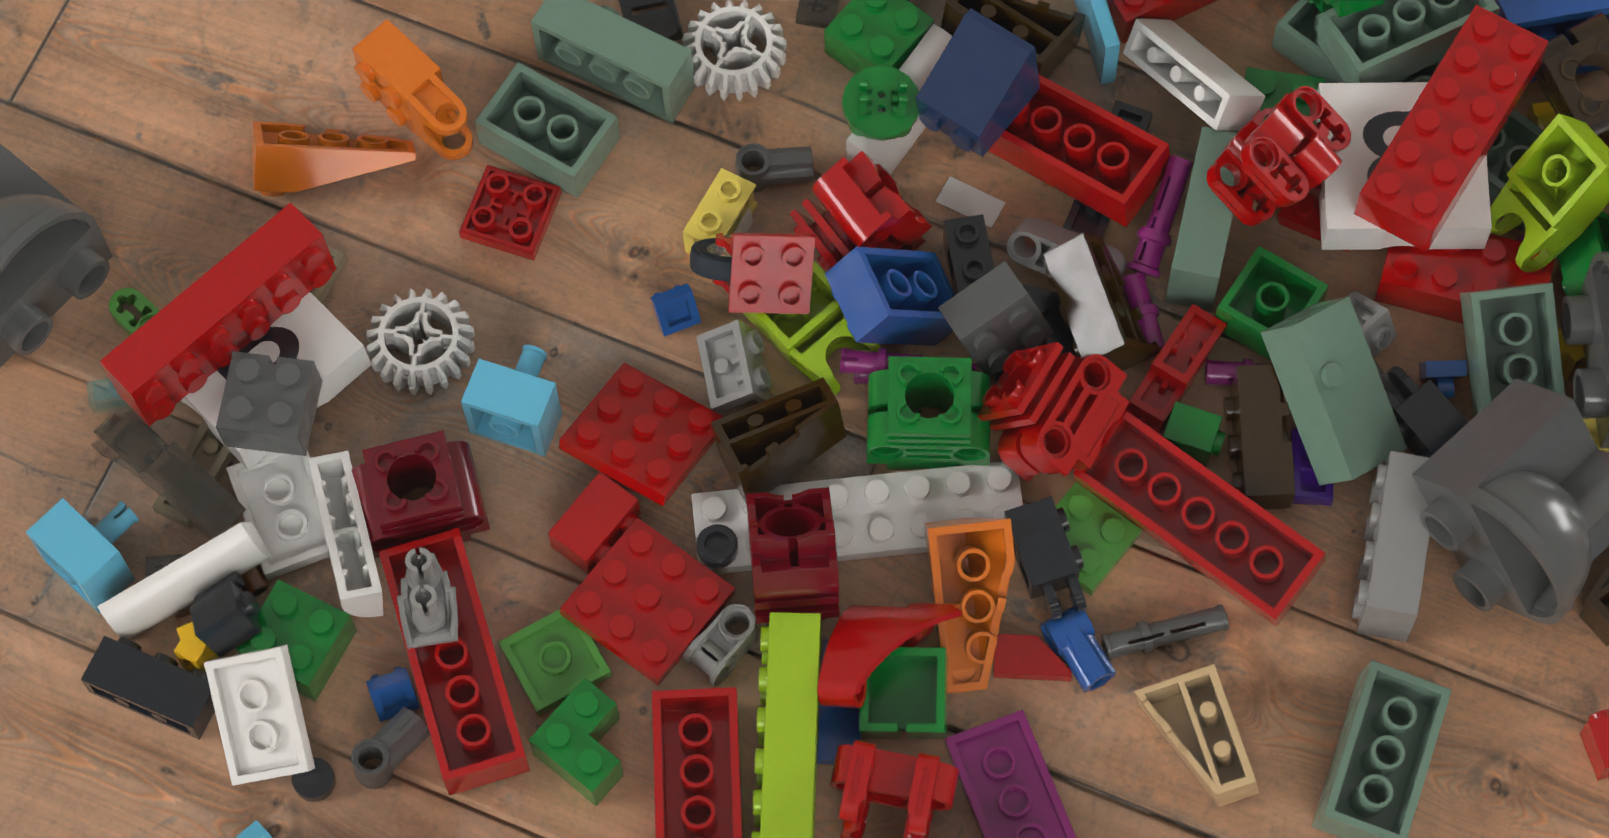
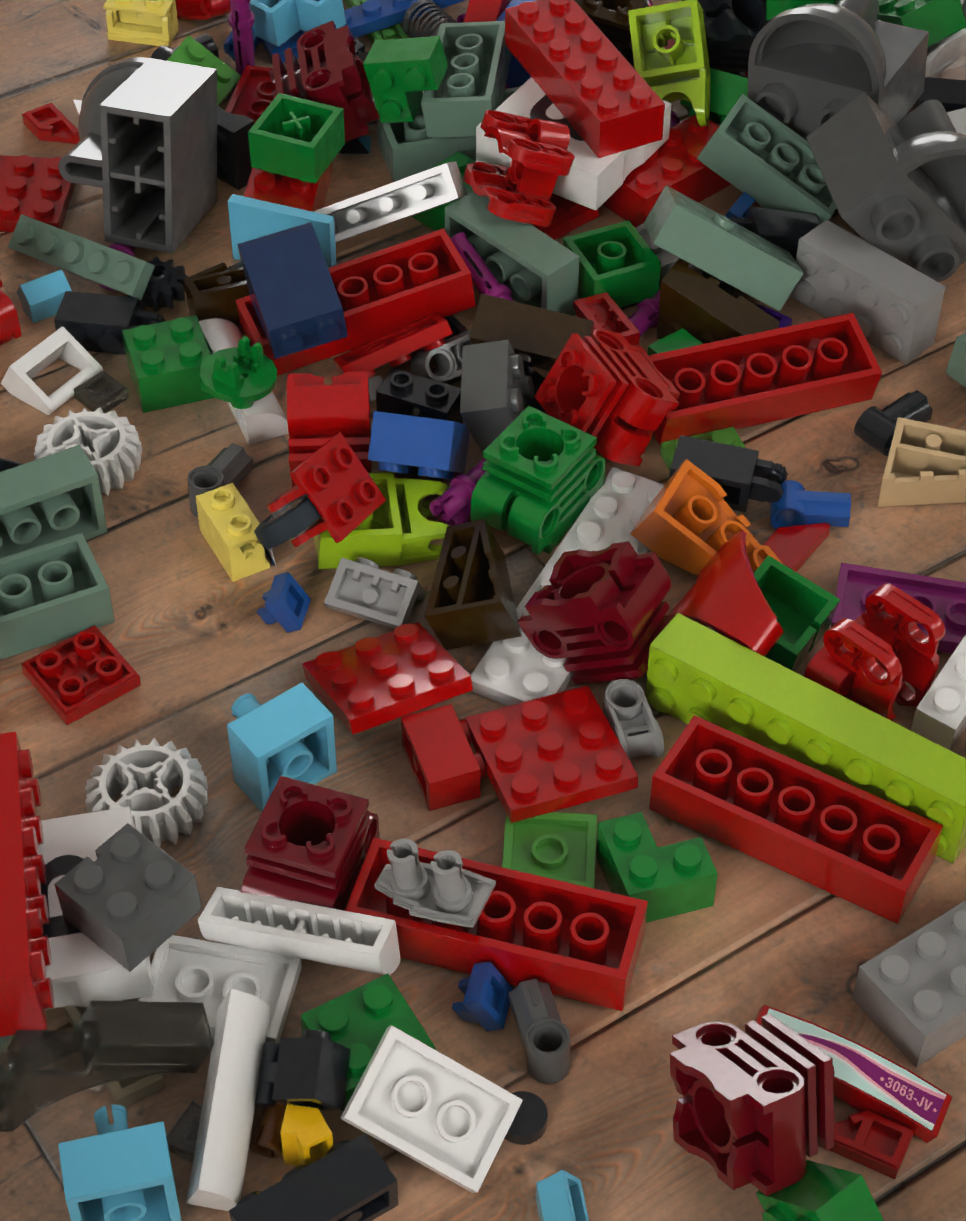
camera: 60 degrees left, 20 degrees down
(717, 546) = (538, 677): black tile -> none
(1014, 196) = (395, 346): none -> red plate
(1118, 643) = (828, 466): dark grey pin -> none
(1240, 660) = (878, 425): none -> black piece

